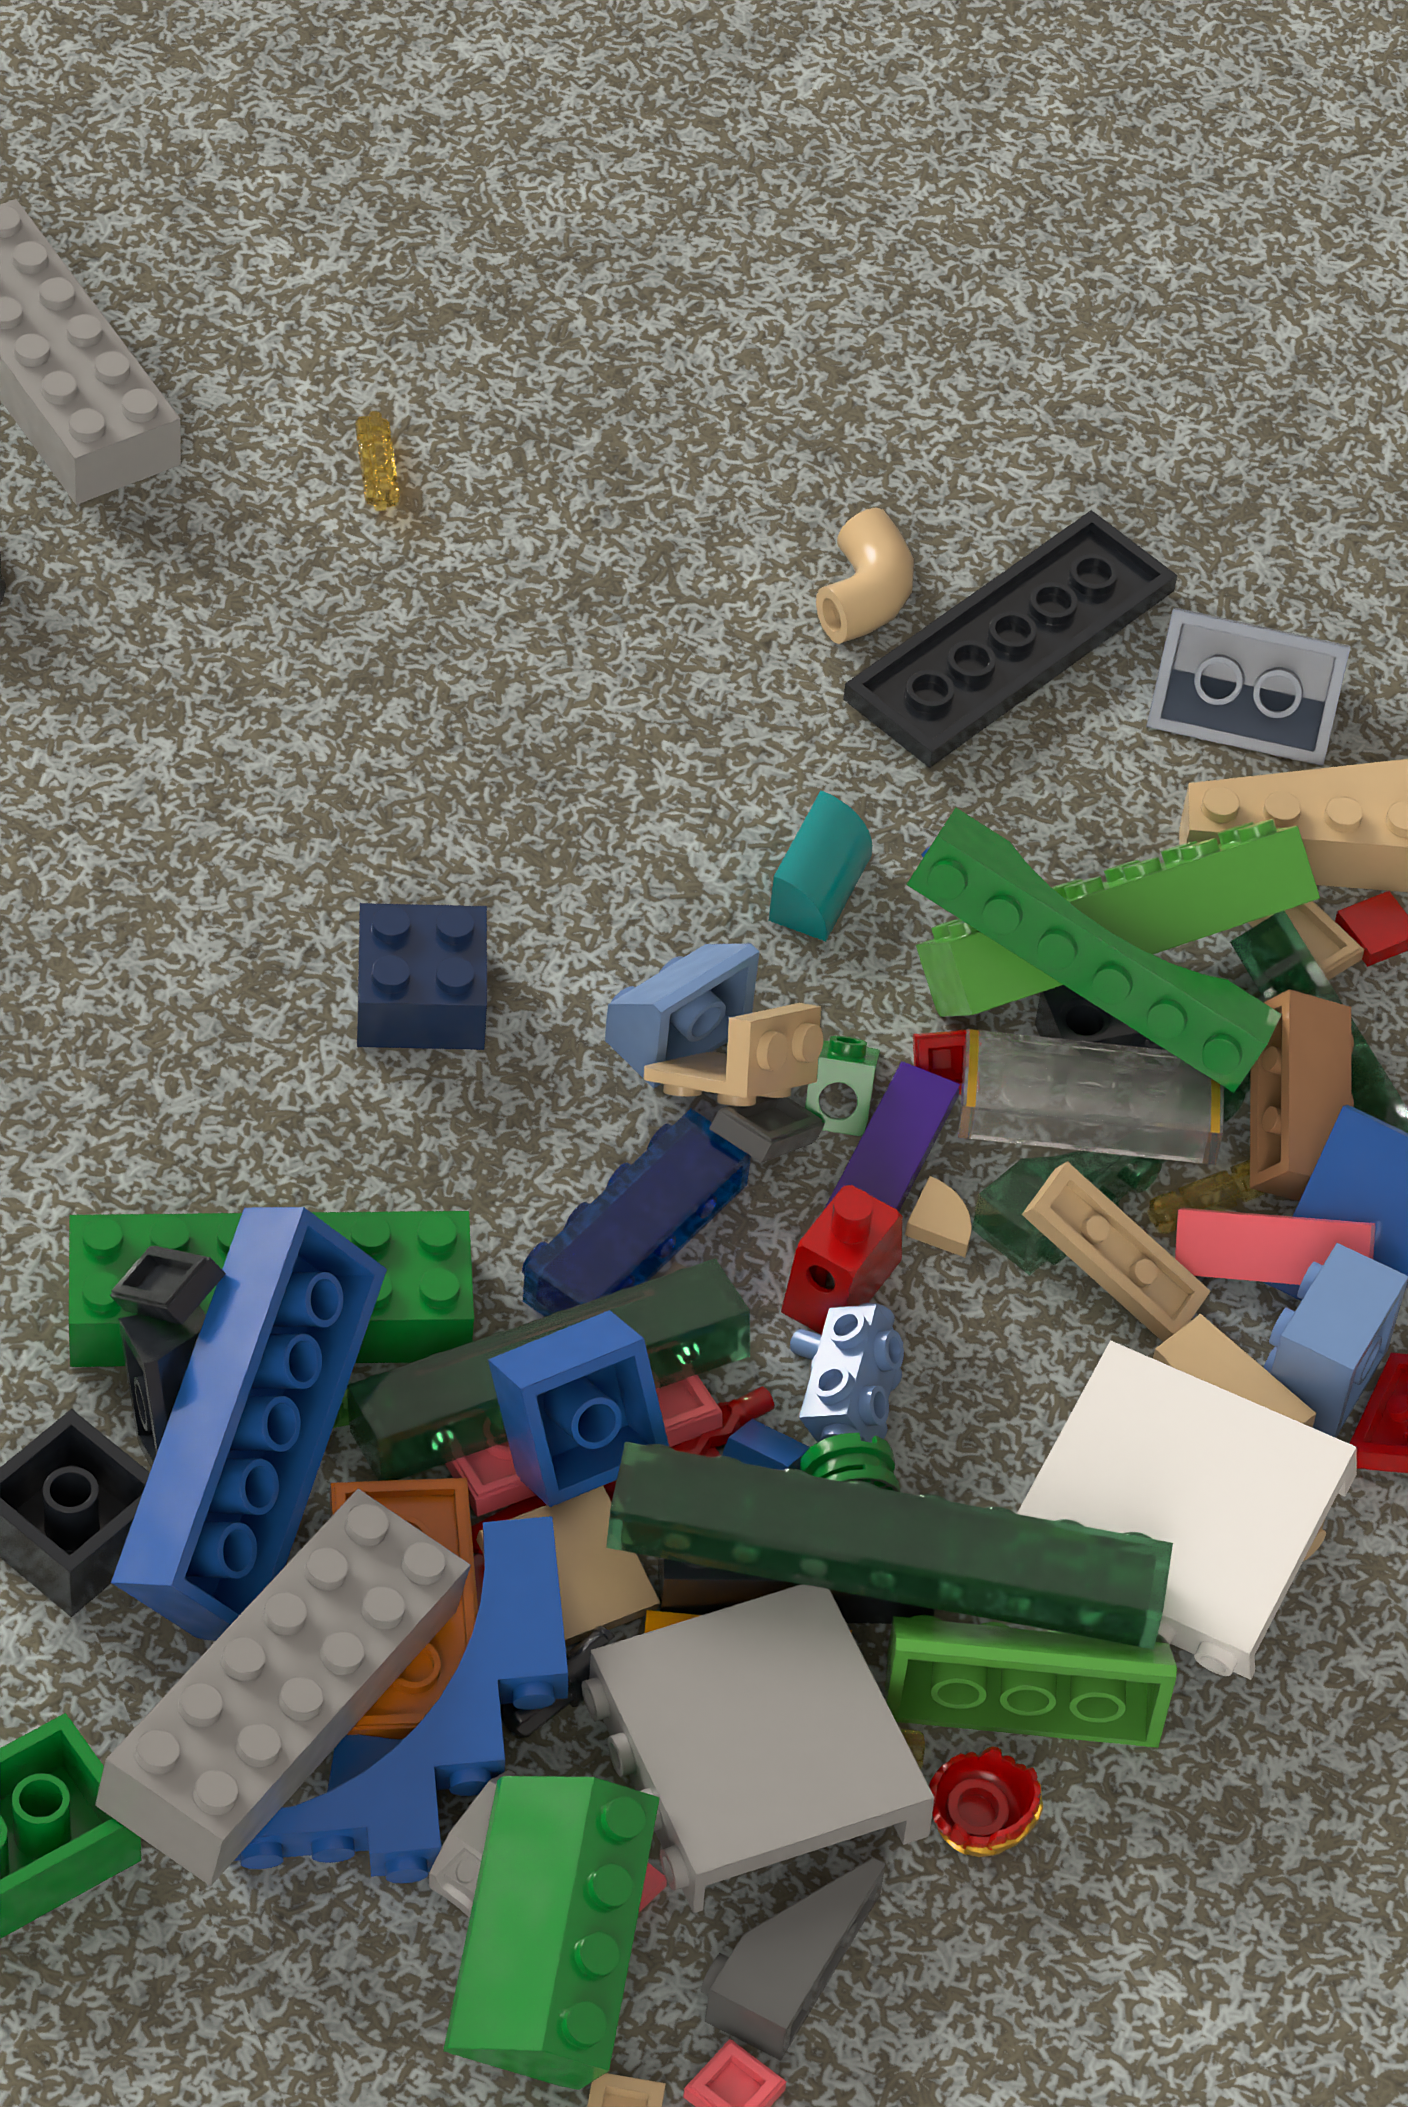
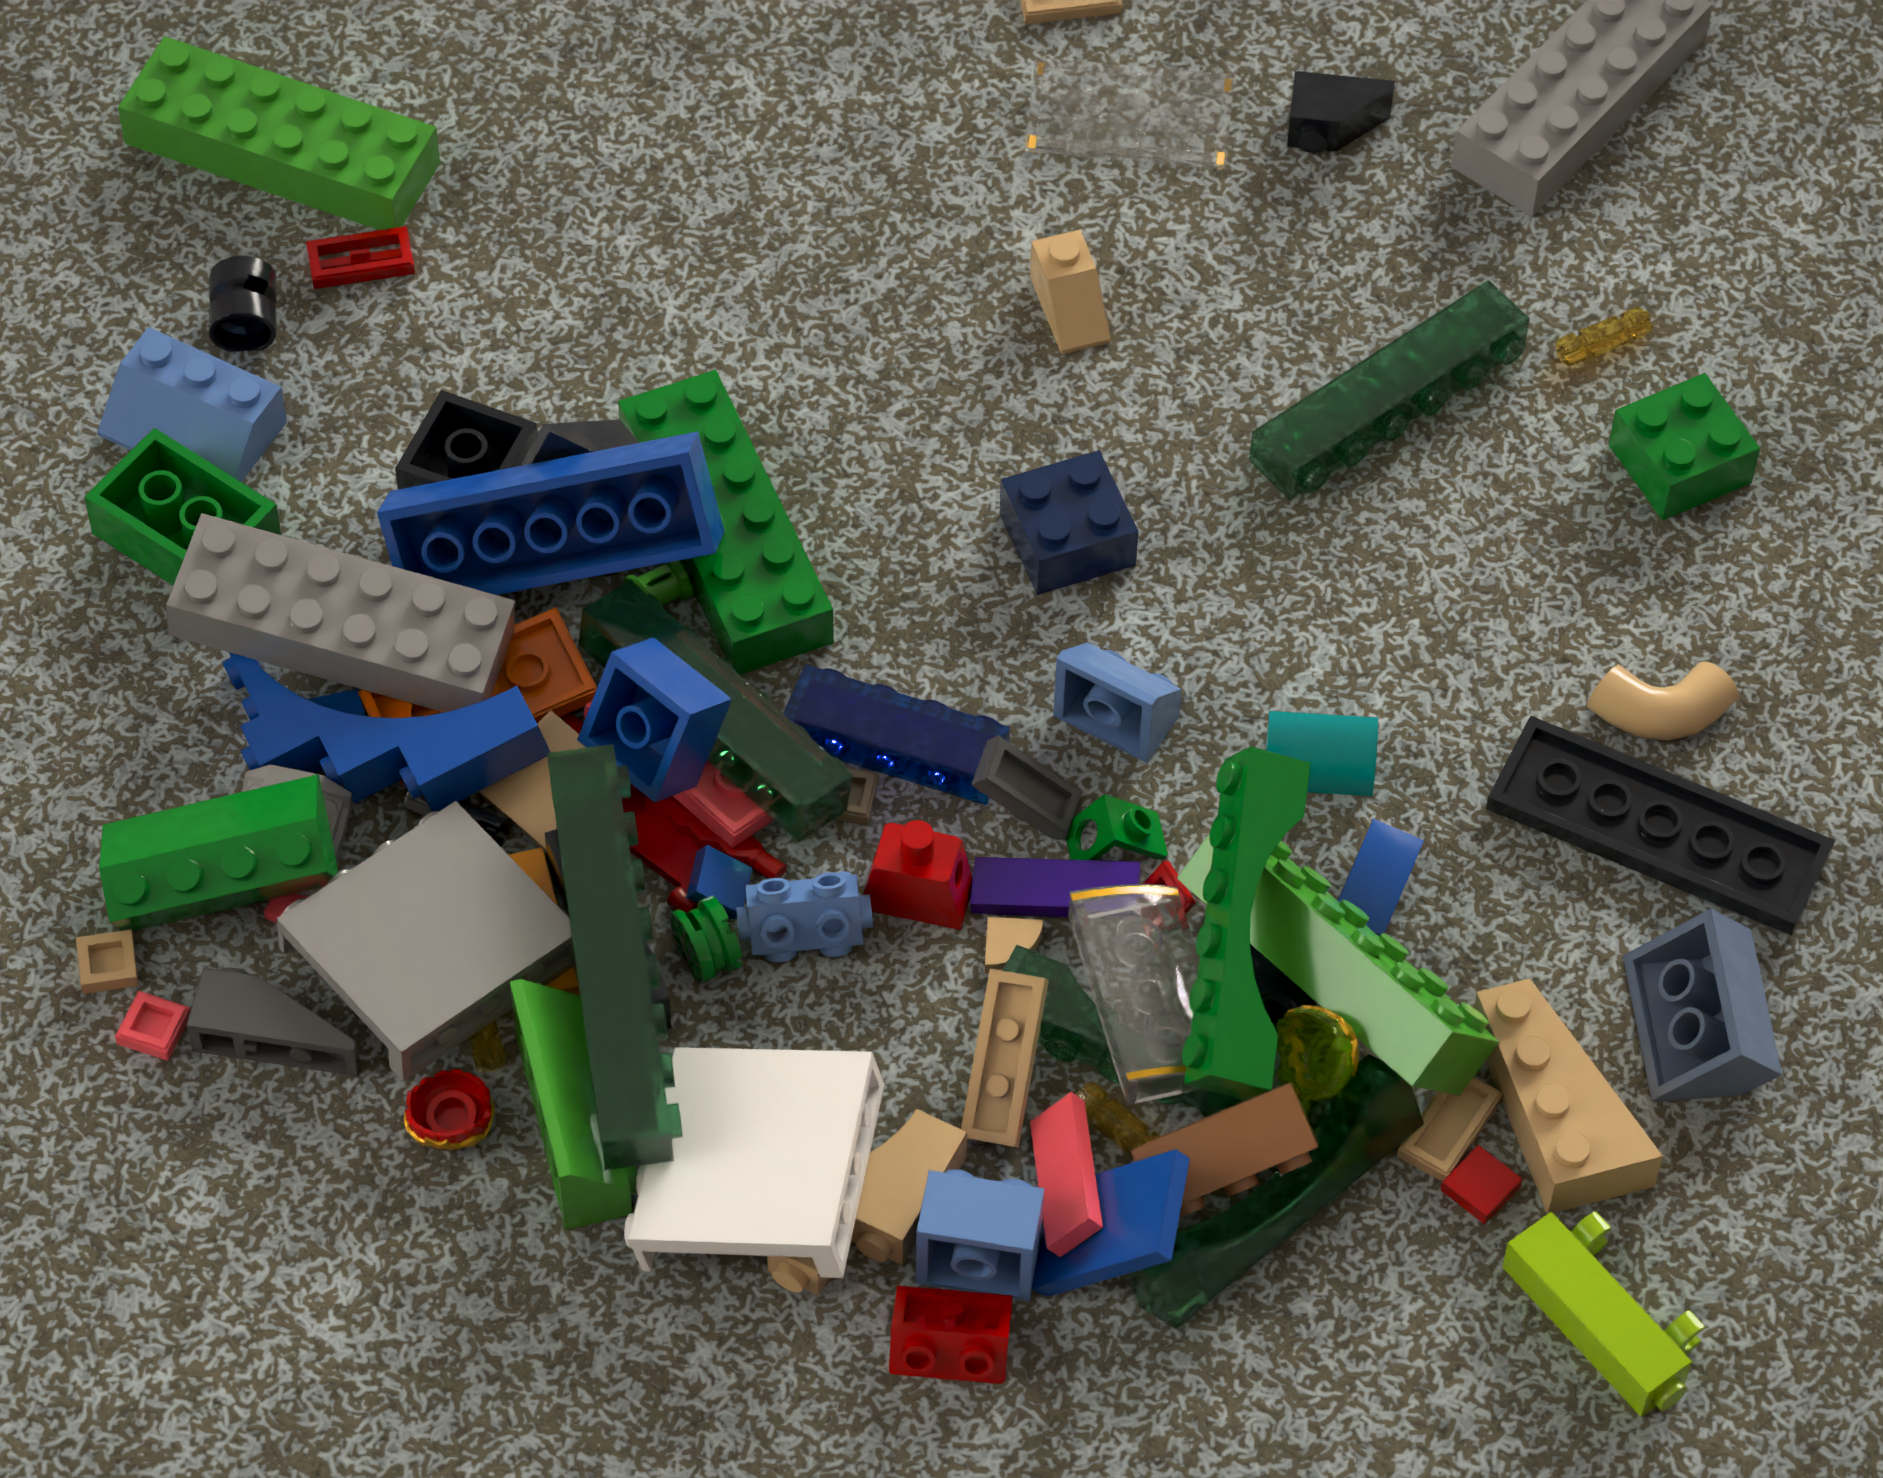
camera: 75 degrees right, 5 degrees up
(95, 872) = (1069, 291): none -> tan slope
(167, 1284) = (638, 424): black tile -> none
(373, 651) = (1389, 390): none -> clear green brick
(564, 444) = (1683, 446): none -> green brick
(763, 1058) = (1066, 746): tan bracket -> none
(1246, 956) = (1316, 1052): none -> clear neon green hair

